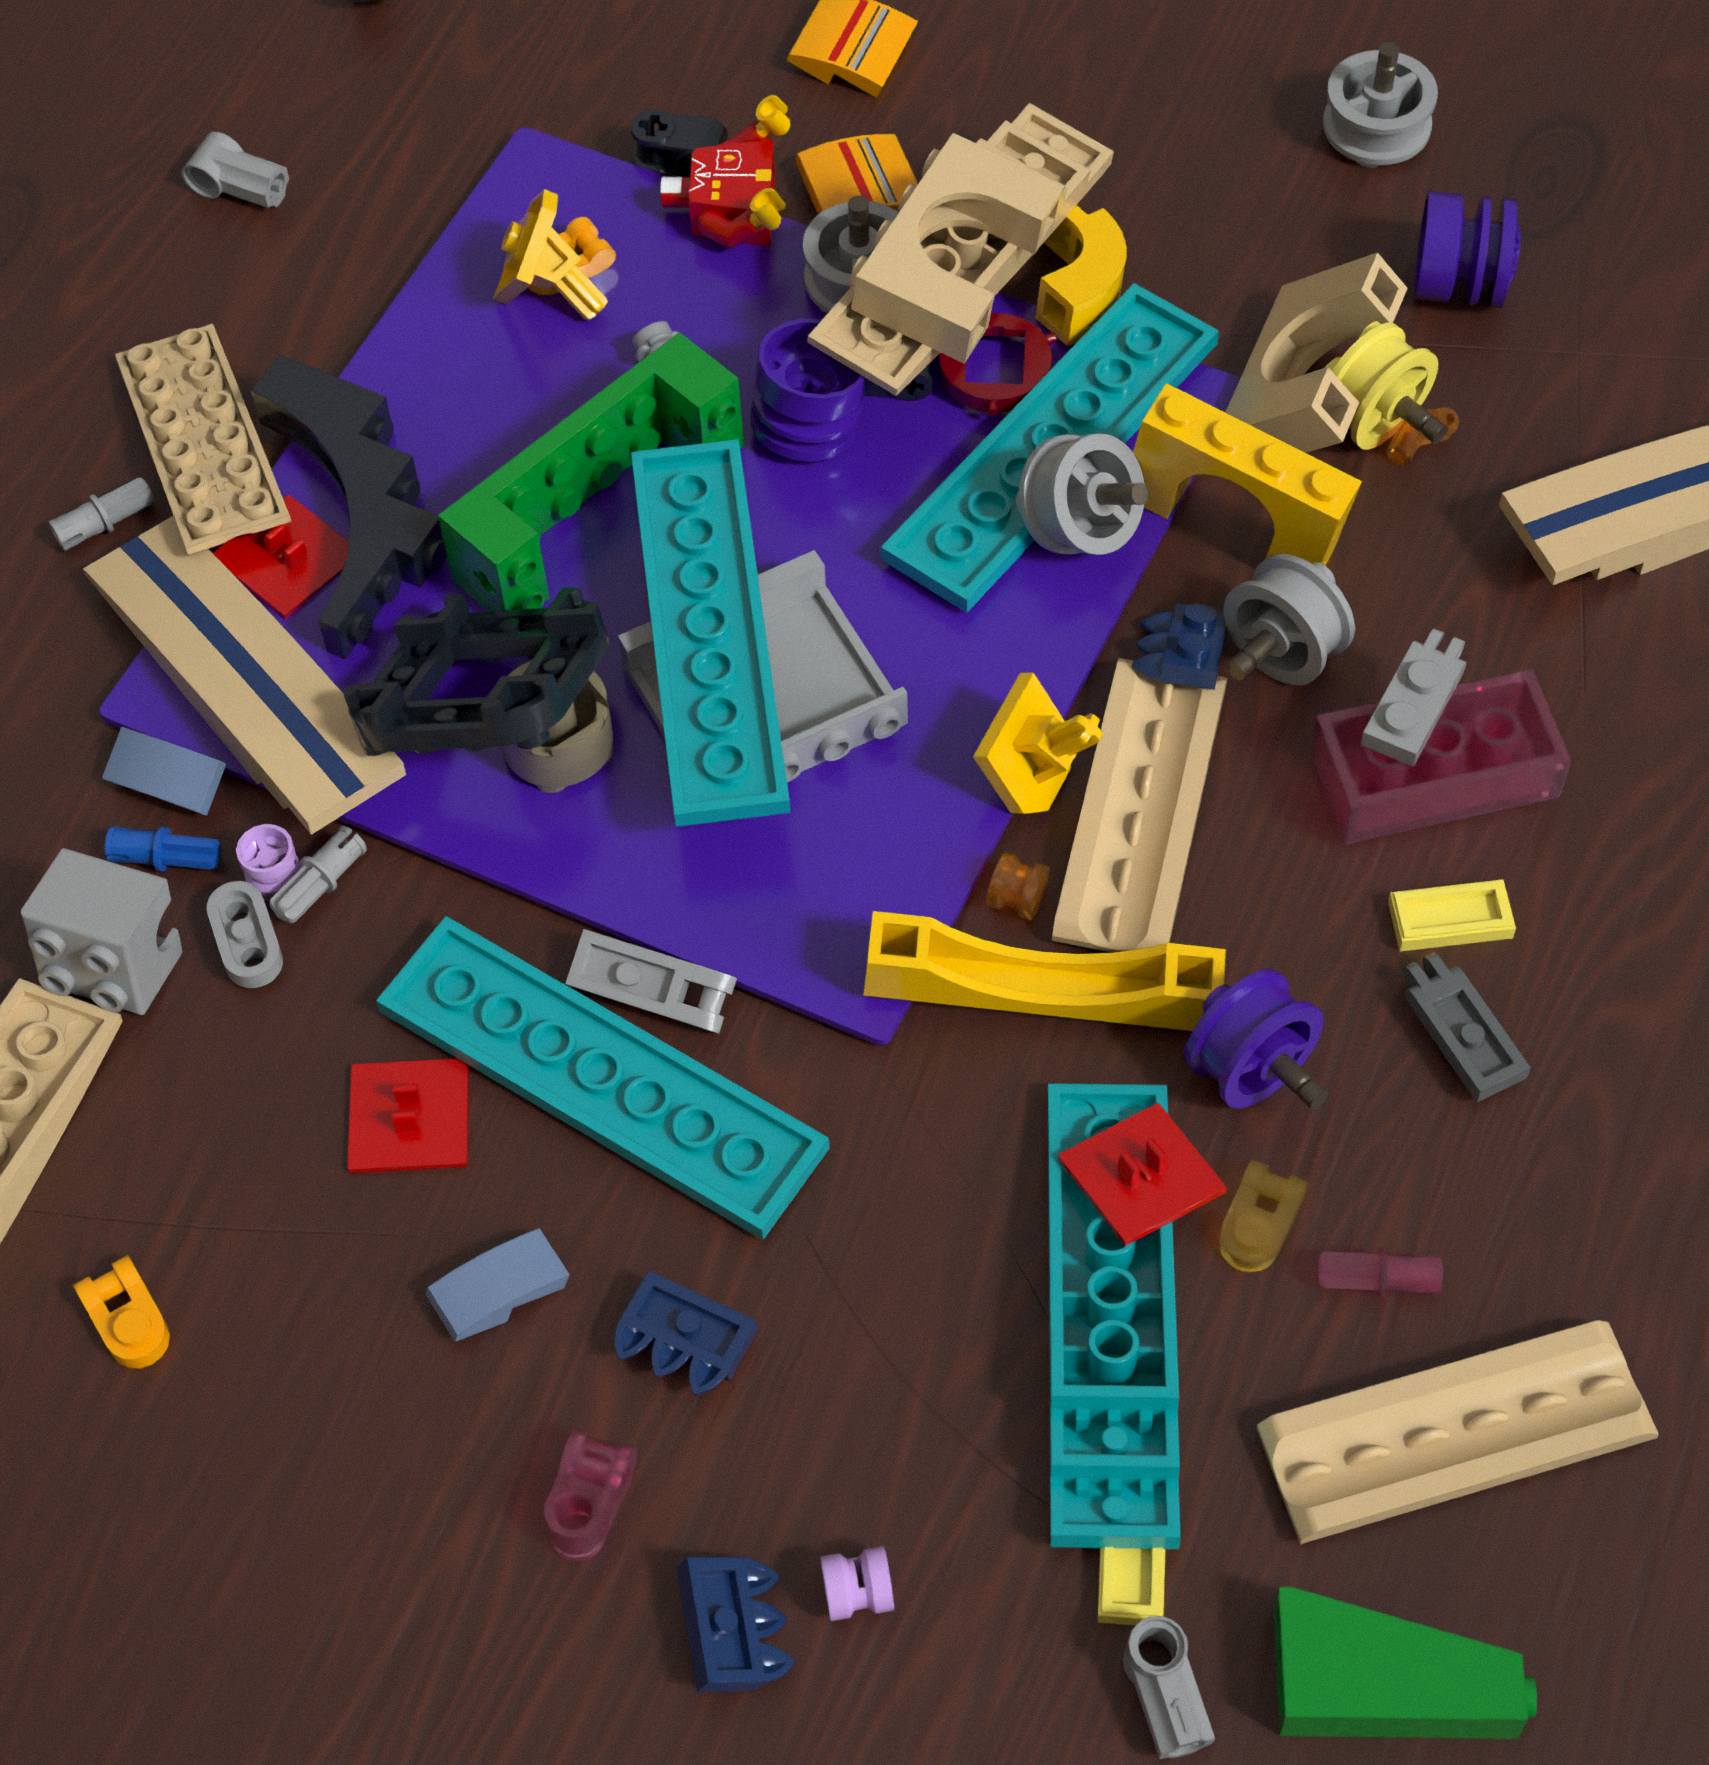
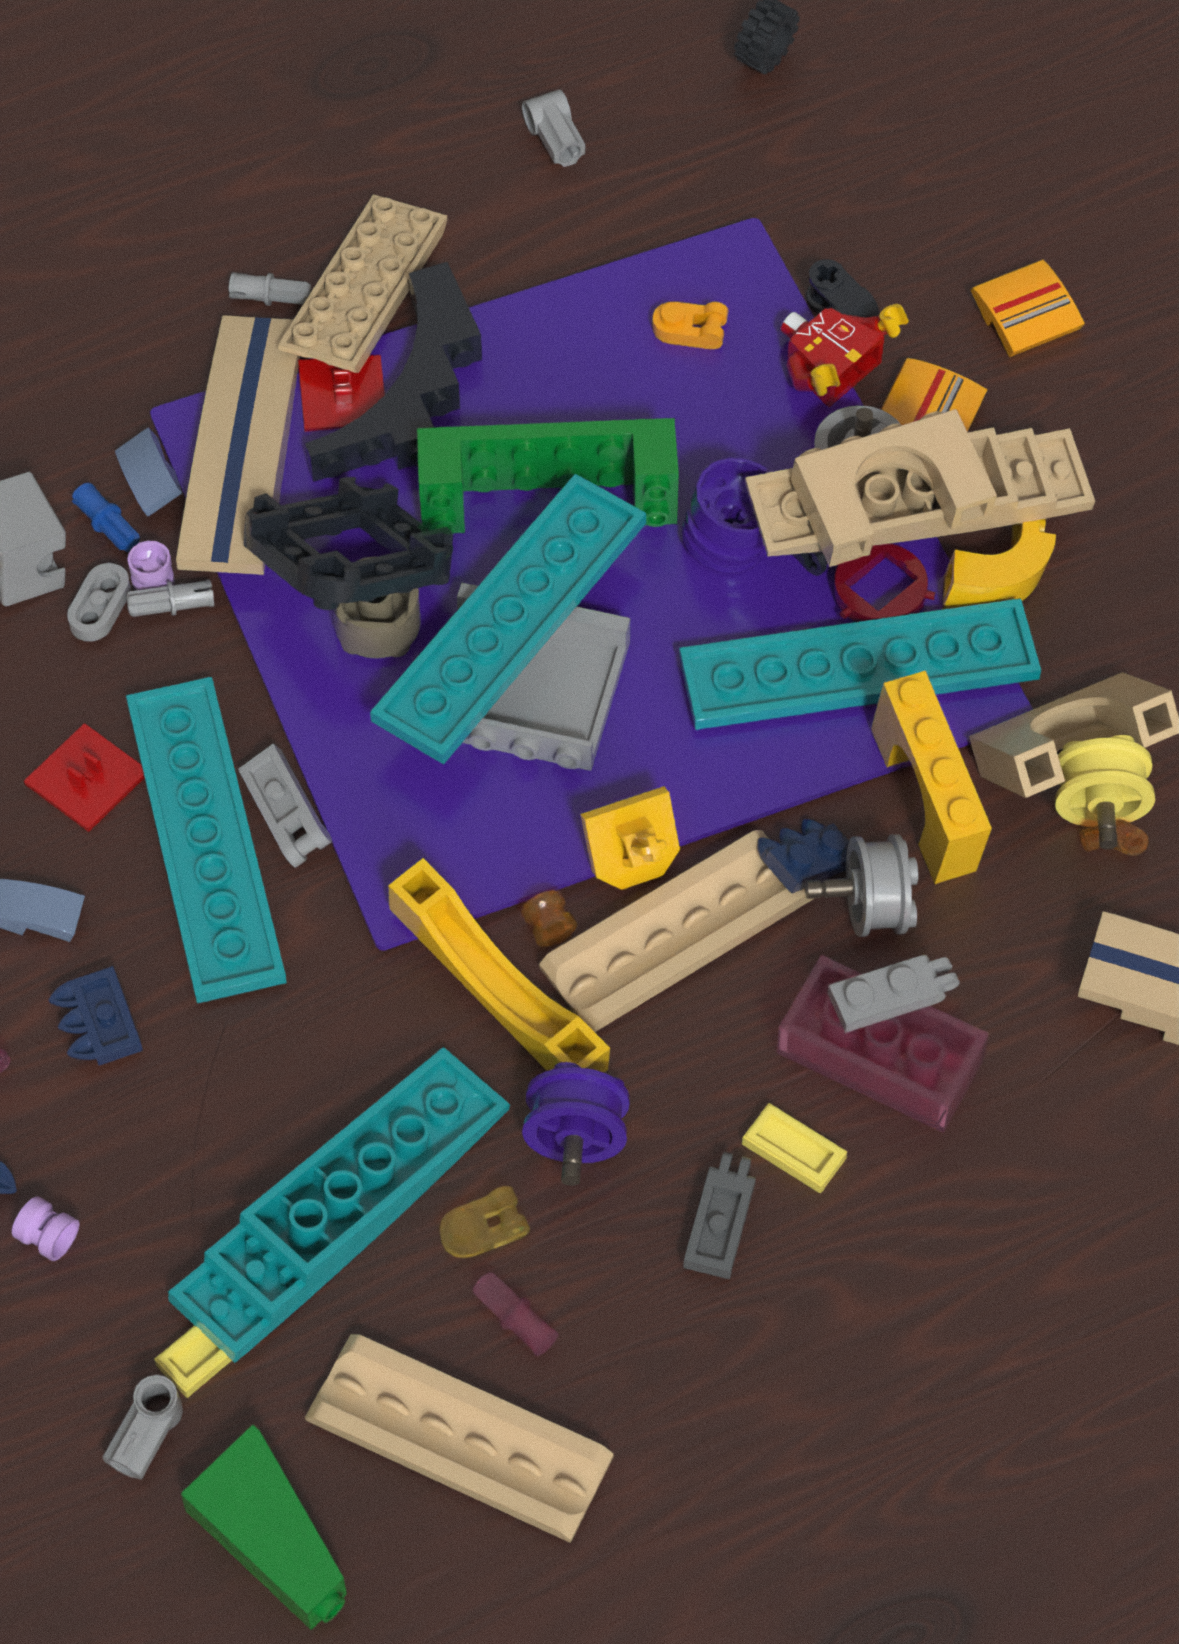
camera: 40 degrees right, 0 degrees up
(545, 260) = (661, 312): yellow piece -> none
(651, 338) = (687, 419): light grey plate -> none
(1082, 494) = (826, 706): light grey wheel -> none
(1142, 1174) = (433, 1139): red piece -> none

